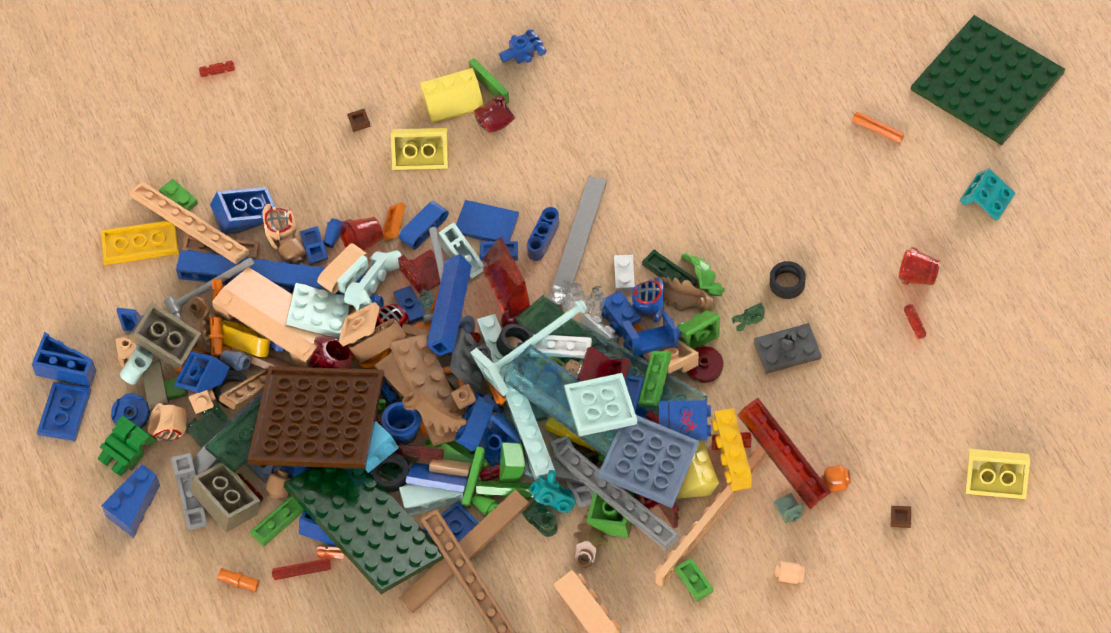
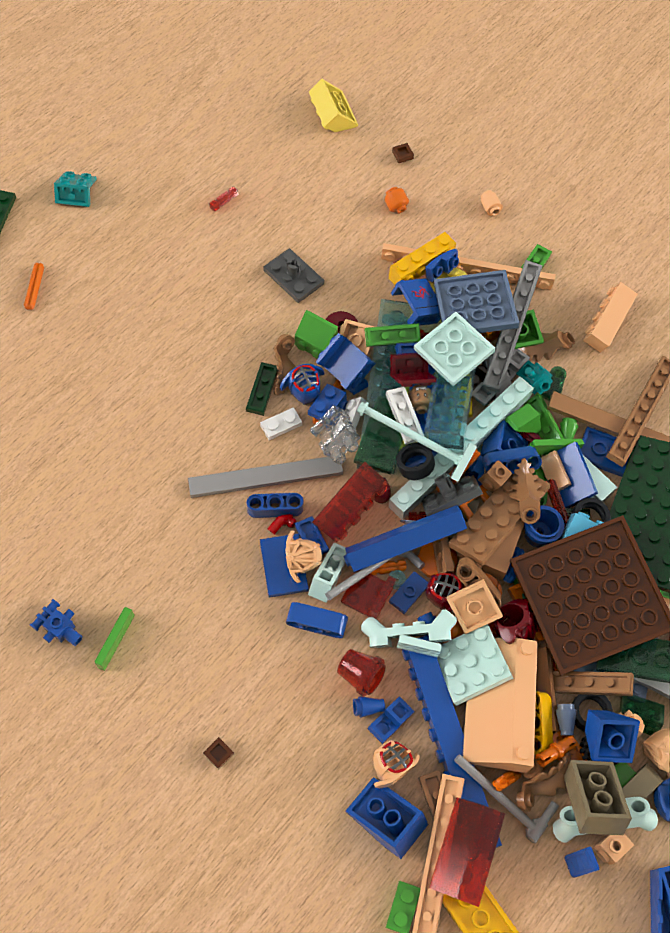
camera: 125 degrees left, 5 degrees up
(184, 237) = (467, 851): none -> clear red slope
(292, 250) = (411, 735): medium nougat head -> none
(339, 266) = (416, 660): light nougat beam -> none
(393, 221) = (326, 651): orange plate -> none
(419, 148) = (227, 669): light yellow slope -> none
(451, 95) = (148, 667): light yellow slope -> none
(479, 224) = (301, 555): none -> light nougat piece
(494, 115) = (157, 610): dark red piece -> none
(526, 232) = (282, 521): none -> red arm
(705, 275) = (268, 341): bright green plant -> none
(716, 465) = (442, 263): none -> blue slope
(751, 315) = (278, 308): clear green plate -> none
(784, 453) = (403, 227): clear red brick -> none
(787, 267) = (224, 284): black tyre -> none
(789, 508) = (438, 222): sand green bracket -> none
(918, 268) = (176, 206): clear red piece -> none

